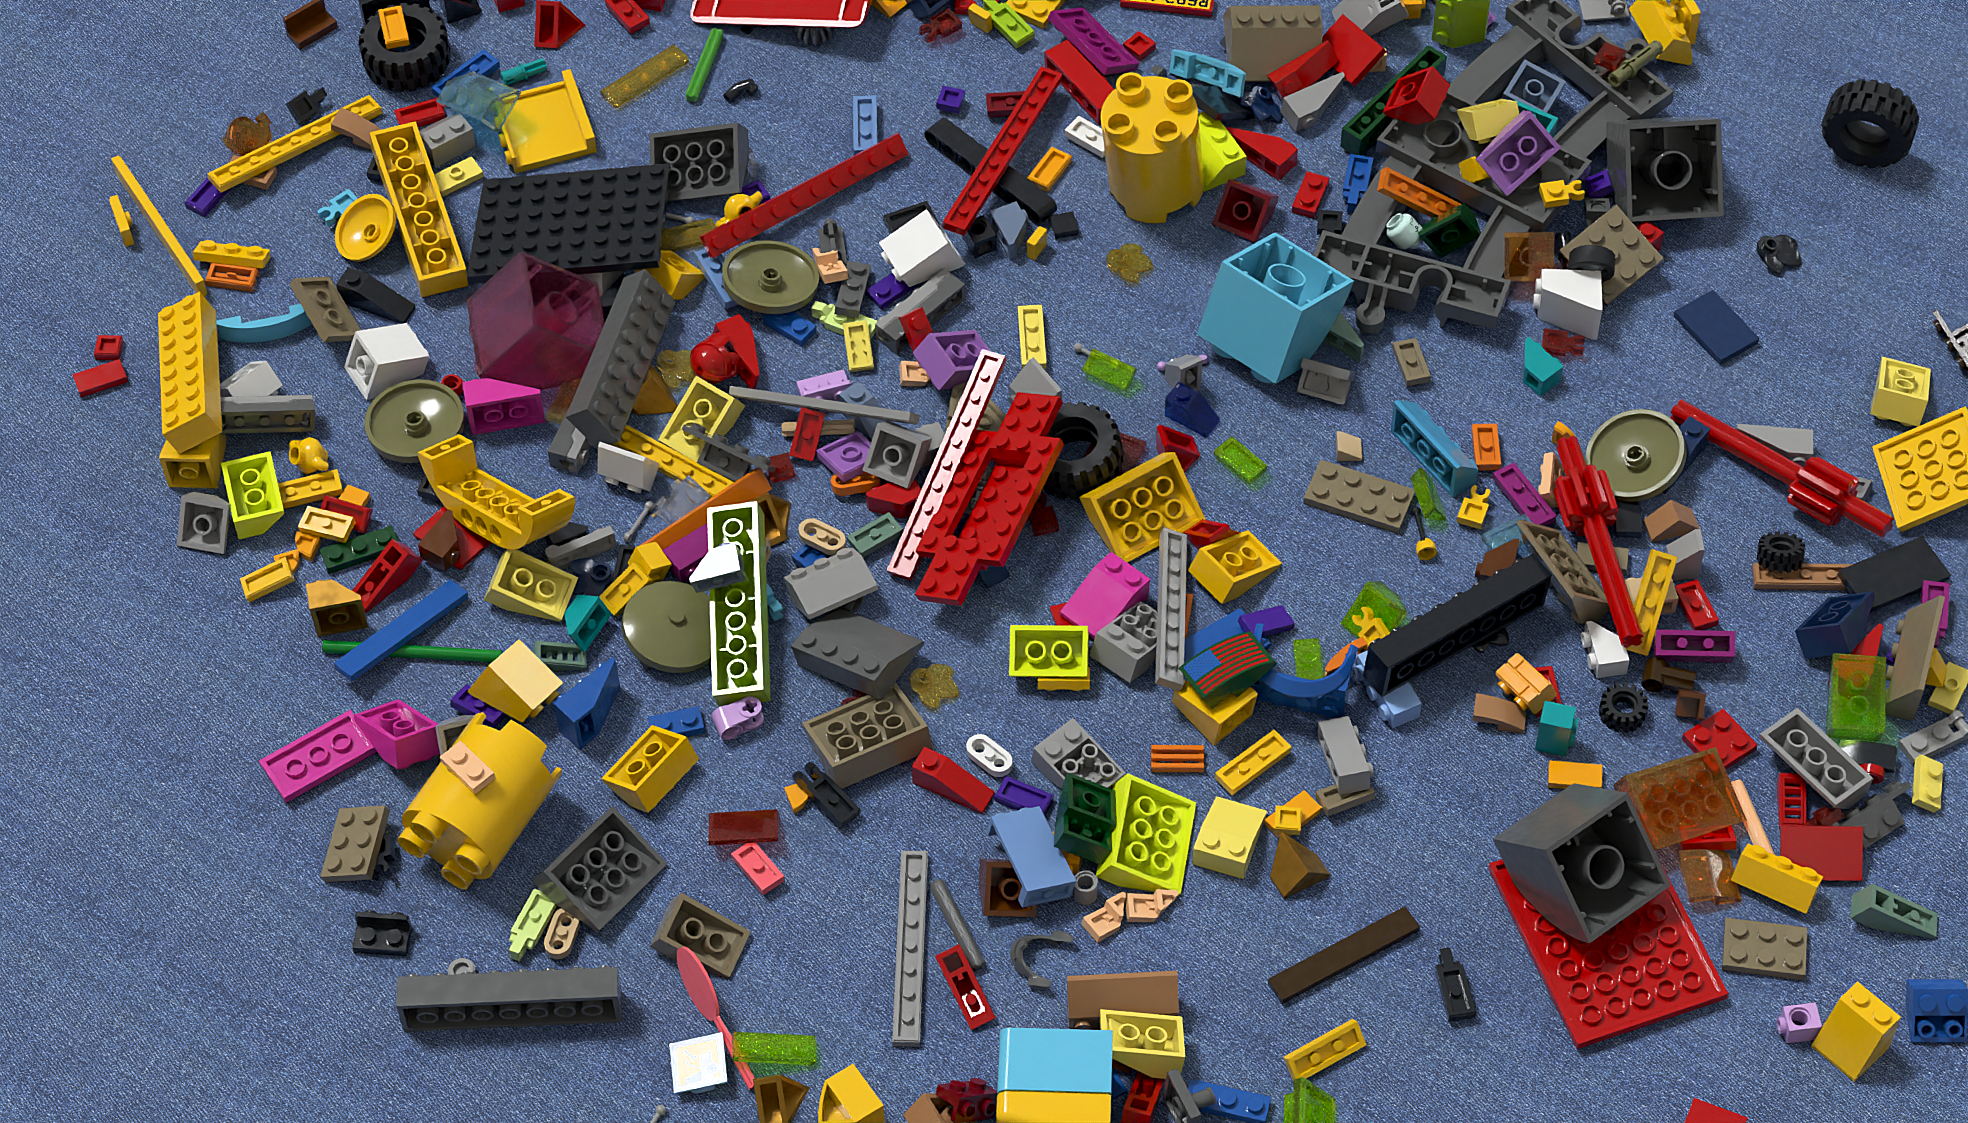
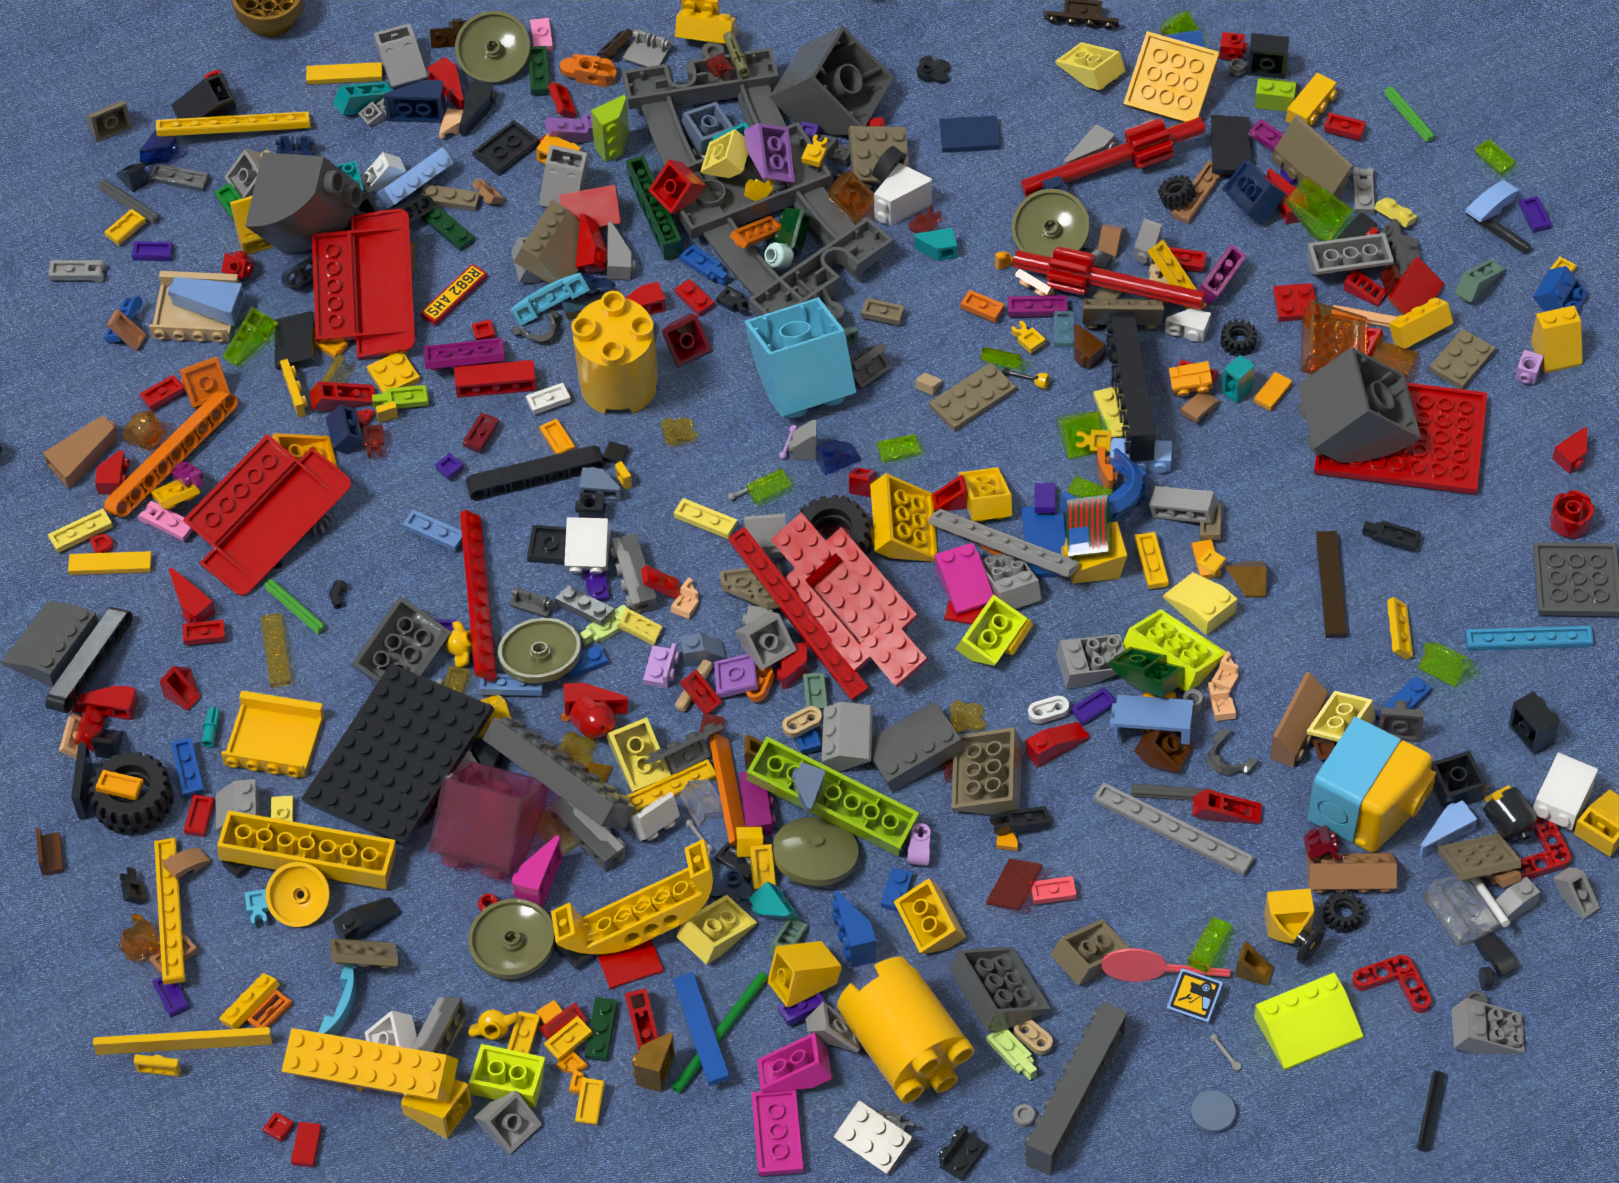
camera: 60 degrees left, 0 degrees up
(385, 358) = (435, 936): white slope -> none
(441, 543) = (639, 967): reddish brown slope -> none
(467, 767) = (901, 1008): light nougat plate -> none
(479, 99) = (229, 761): clear light blue slope -> none
(824, 405) = (690, 665): light grey tile -> none
(829, 266) = (559, 609): light nougat slope -> none
(949, 356) = (698, 571): medium lavender slope -> none
(1002, 151) = (533, 452): red plate -> none
(1177, 755) = (1125, 590): orange tile -> none
(1433, 447) = (966, 334): dark azure slope -> none
(1660, 676) = (1229, 305): dark brown piece -> none
(1690, 703) = (1262, 298): reddish brown panel -> none

